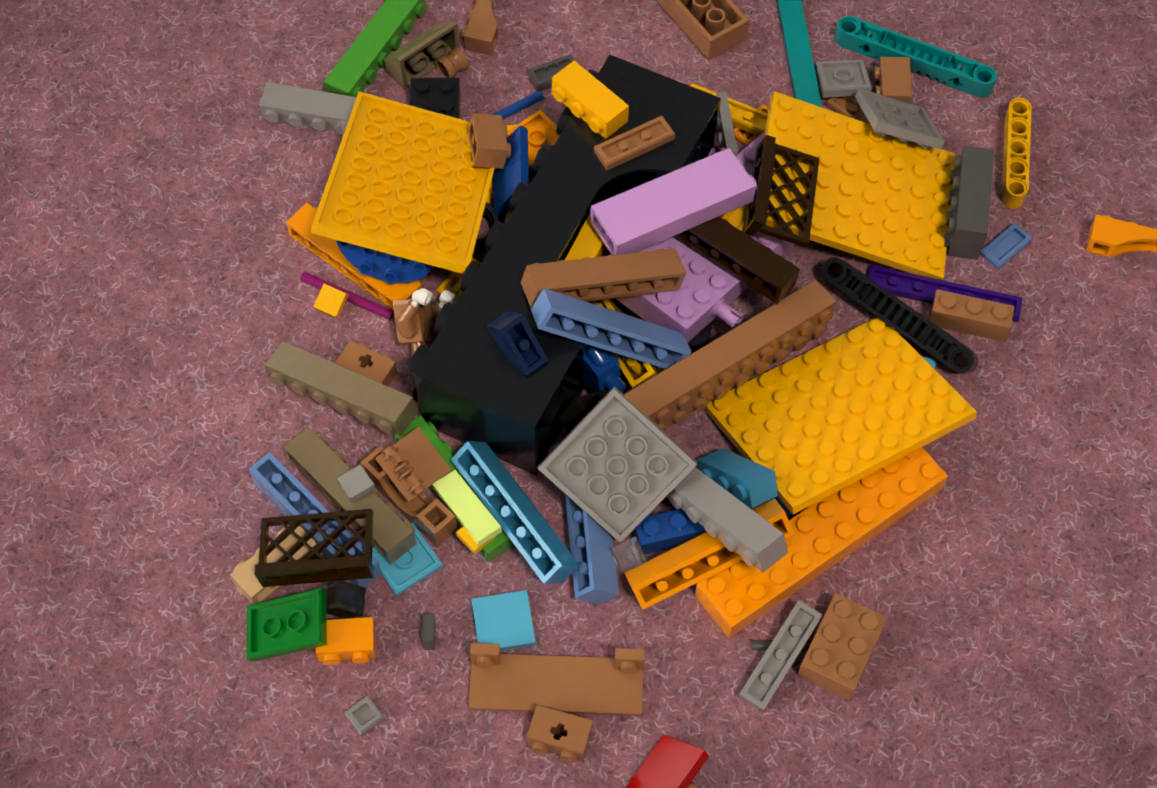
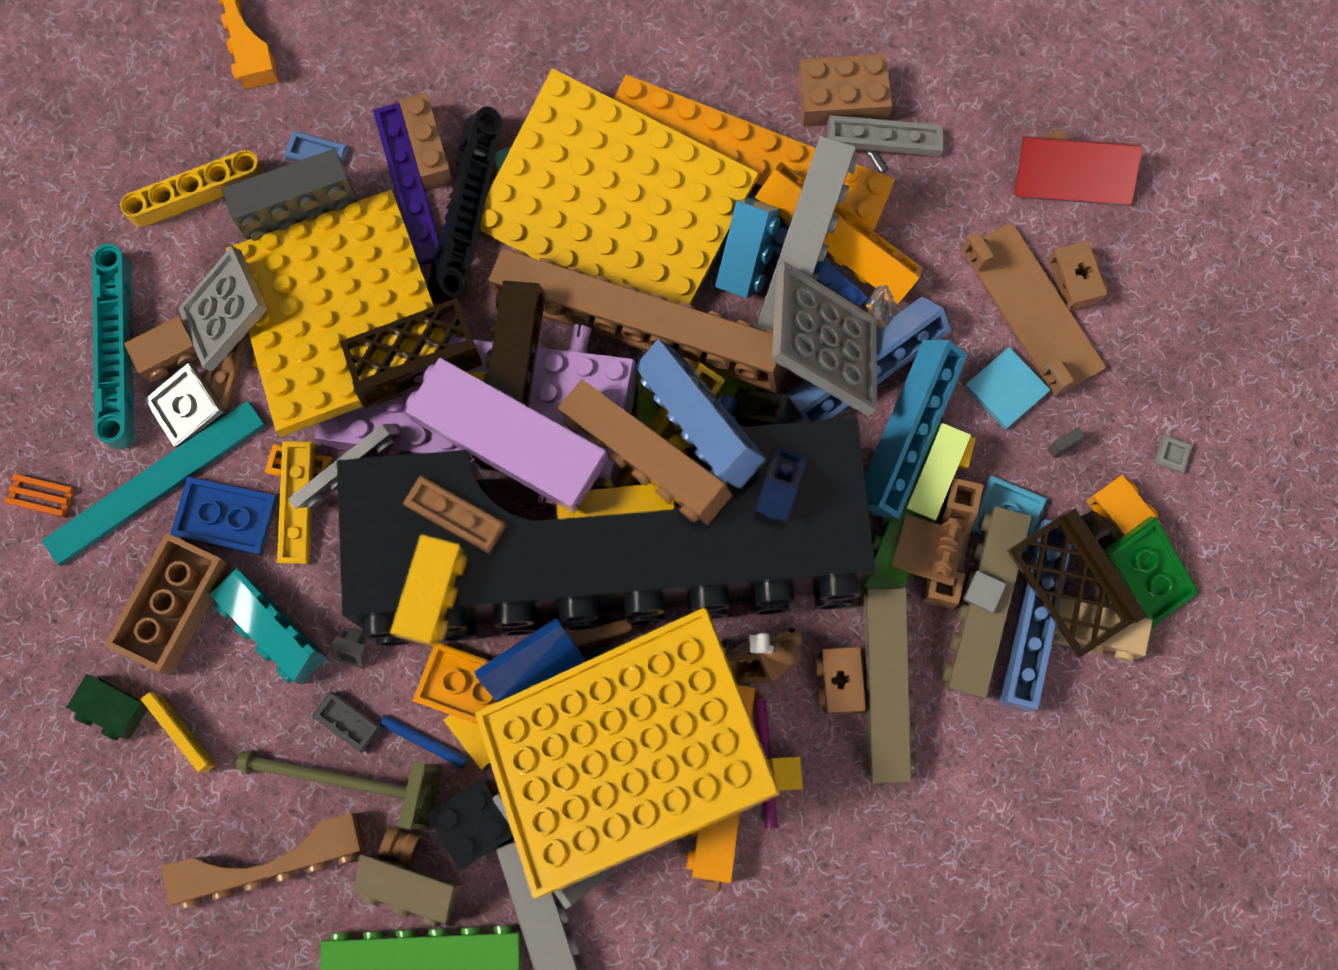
camera: 120 degrees left, 15 degrees up
(479, 82) = (417, 796): none -> olive tile
(488, 141) = (512, 707): medium nougat brick -> none
(658, 53) = (268, 626): none -> teal wedge
(745, 67) = (224, 516): none -> blue plate

